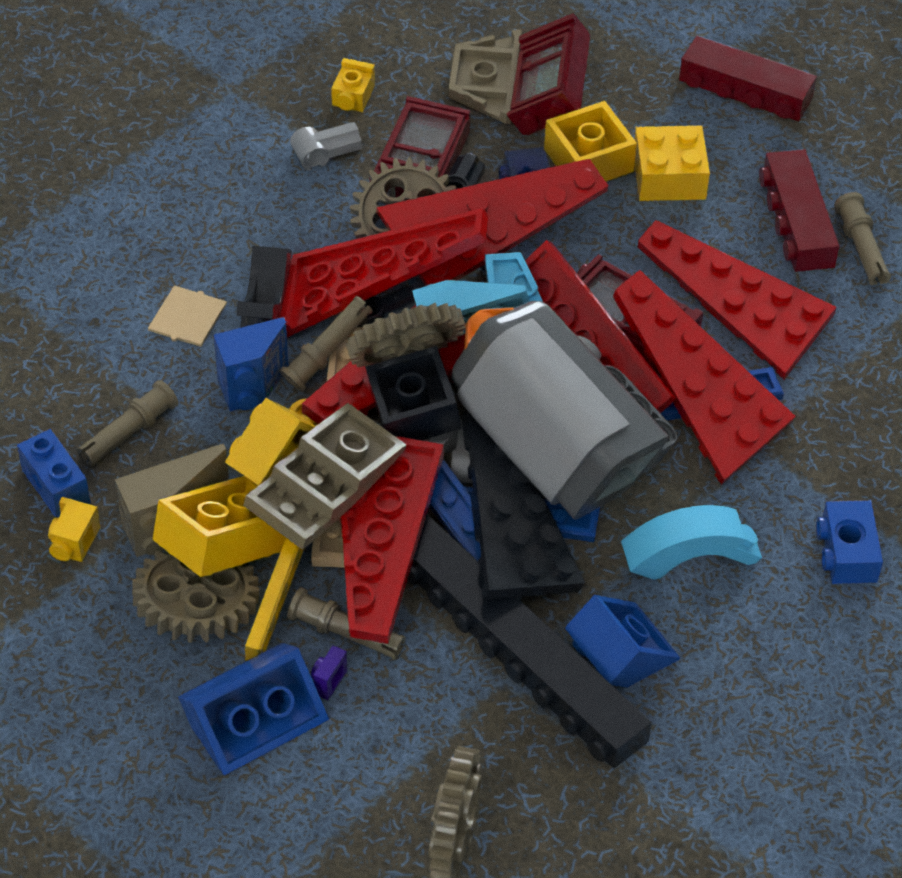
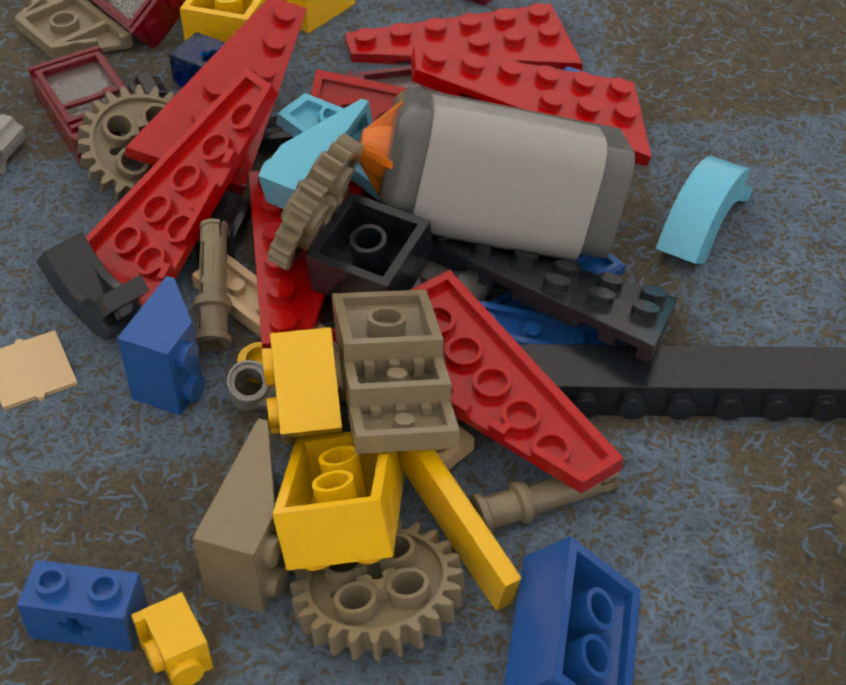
camera: 45 degrees left, 5 degrees down
(139, 414) = (99, 482): dark tan pin -> none
(329, 671) = (596, 537): dark purple plate -> none
(619, 640) = (765, 318): blue slope -> none
(850, 542) = (795, 129): blue brick -> none

